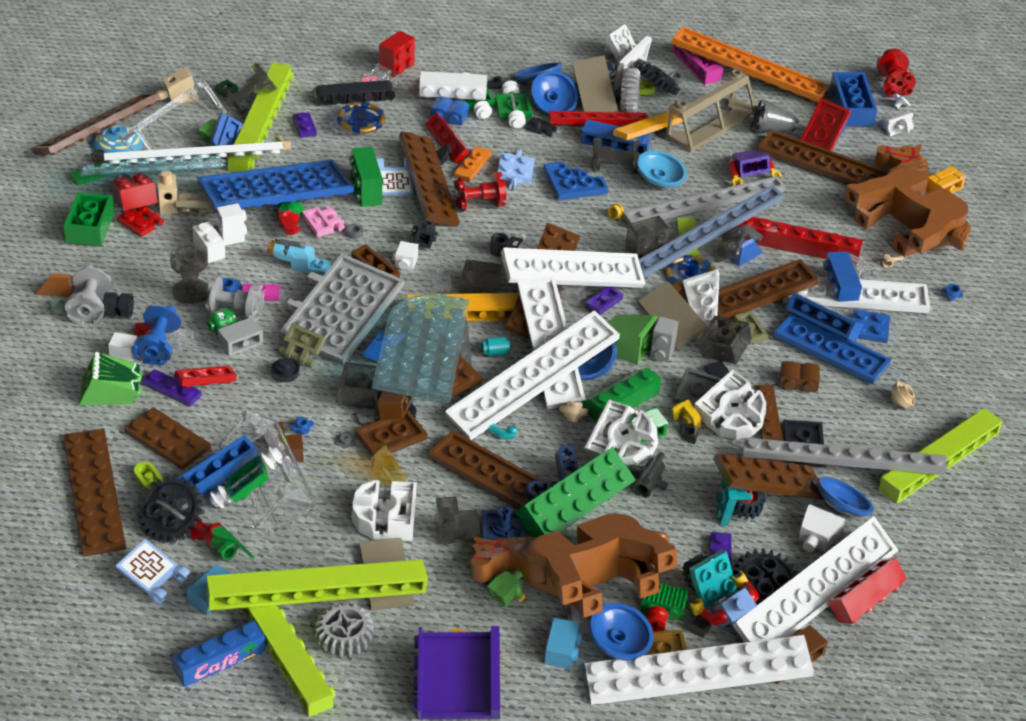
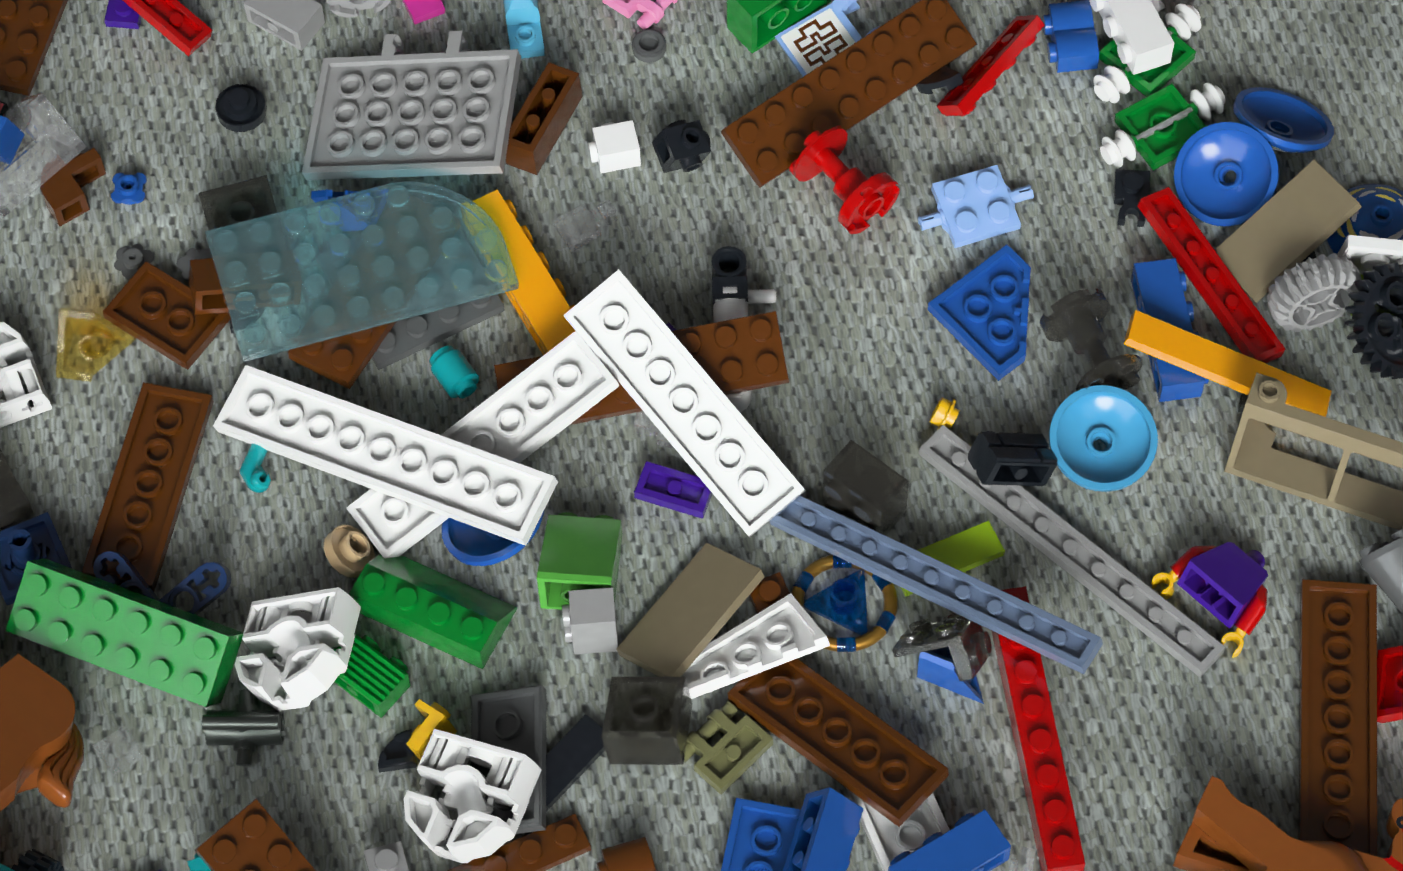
camera: 70 degrees right, 20 degrees up
(304, 339) = (302, 101): olive plate -> none
(473, 163) = (948, 136): orange plate -> none
(480, 277) = (596, 262): clear smoke brick -> none
(496, 83) = (1221, 70): black tile -> none
(656, 194) = (1012, 459): none -> black brick

